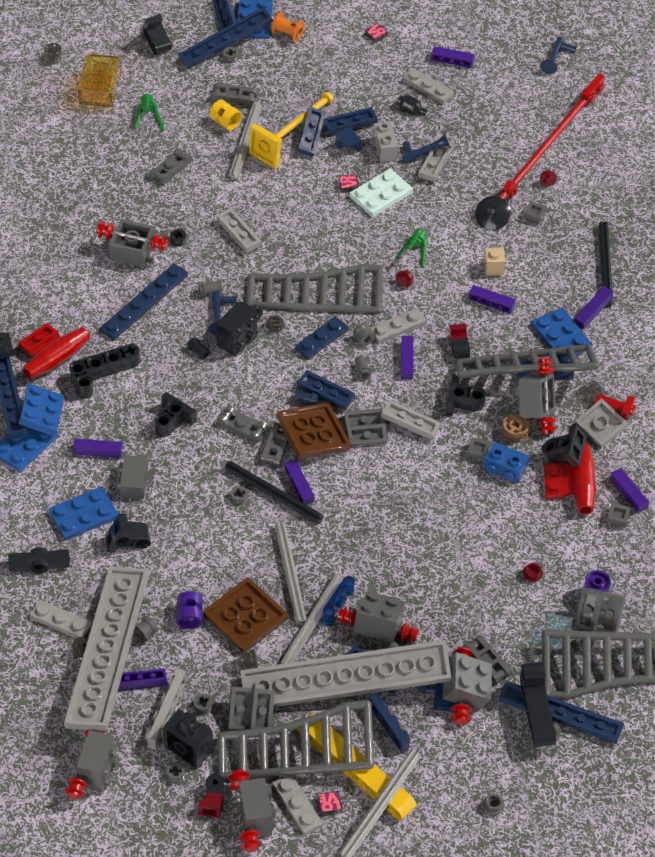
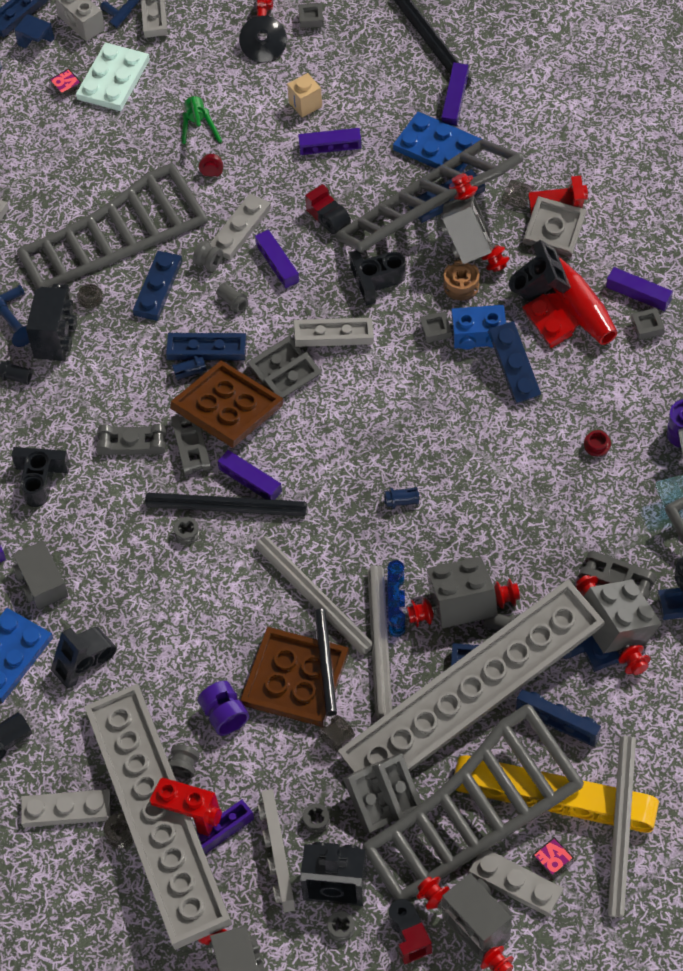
camera: 25 degrees left, 5 degrees up
(131, 651) = (188, 801): none -> red bracket
(268, 615) = (325, 662): none -> black bar
(384, 542) = (401, 497): none -> dark blue pin
(512, 495) = (514, 362): none -> dark blue plate

